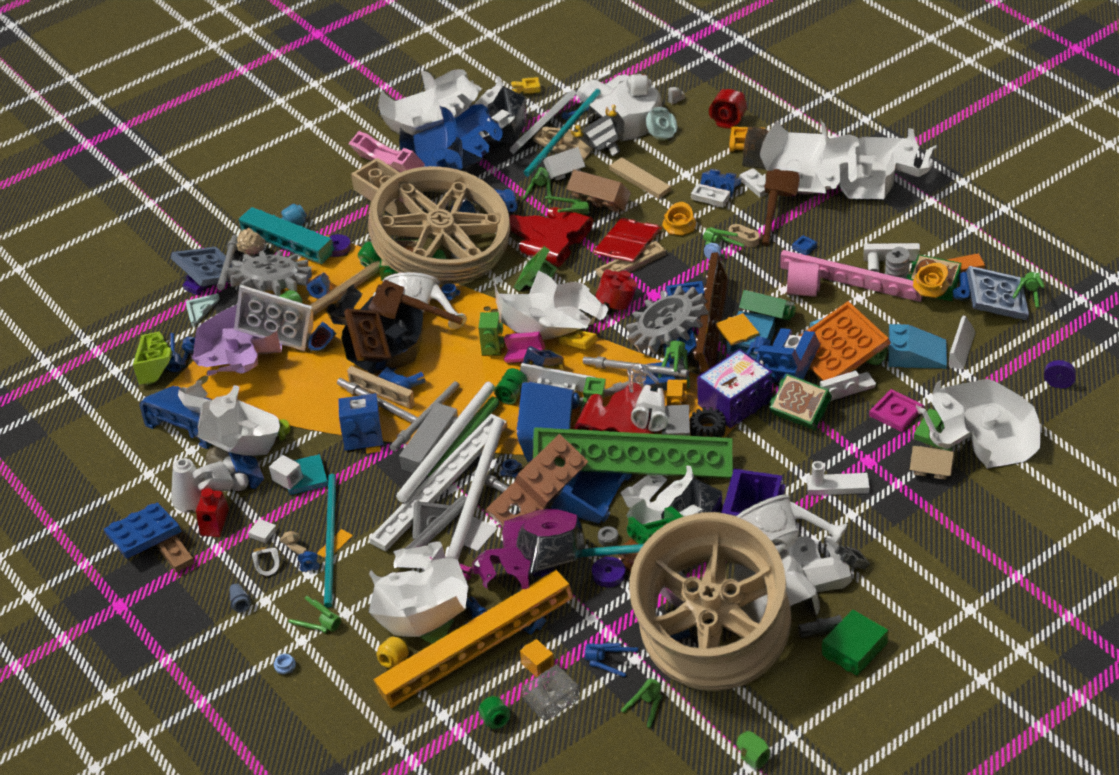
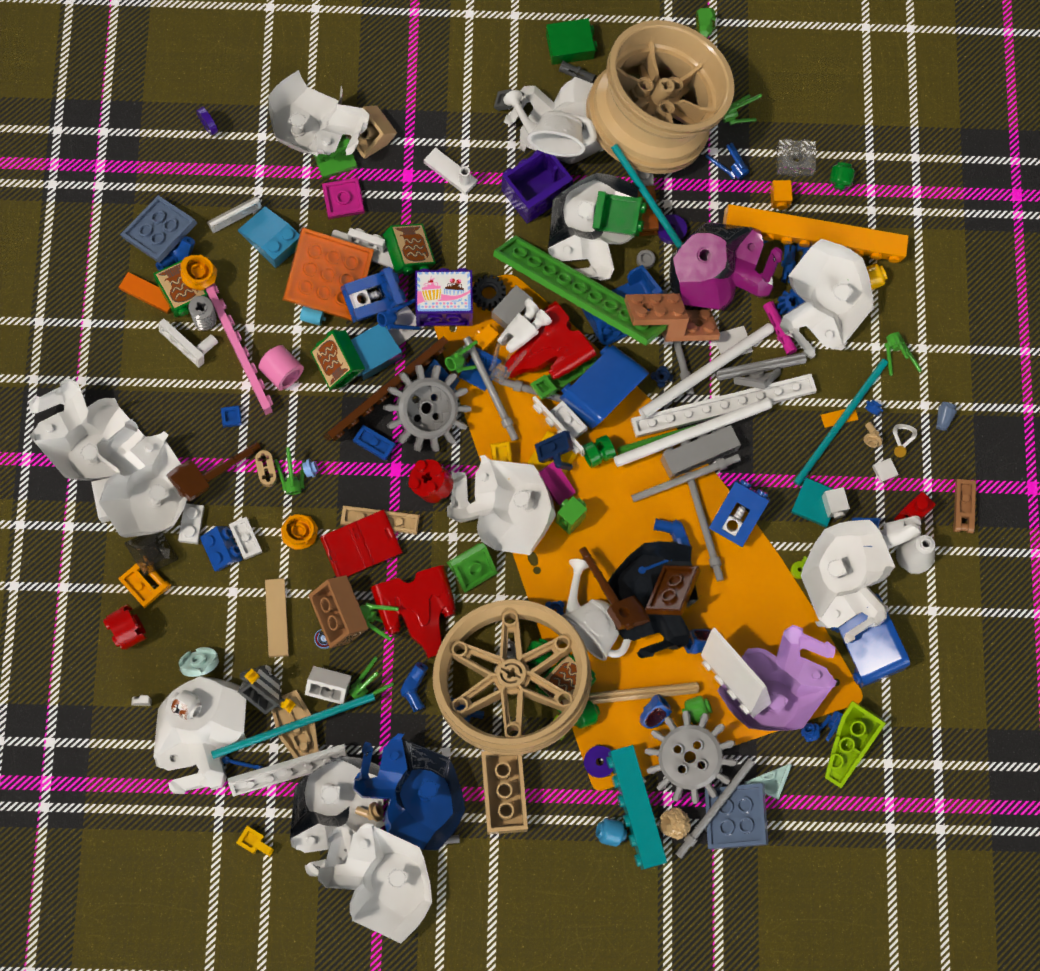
camera: 150 degrees left, 30 degrees up
(142, 530) = (978, 539): blue plate -> none
(284, 663) = (950, 331): light blue plate -> none
(371, 149) = (476, 861): bright pink arch -> none
(382, 387) = (695, 540): tan tile -> none
(737, 329) = (384, 353): light orange piece -> none
(1031, 281) = (120, 220): bright green plant -> none

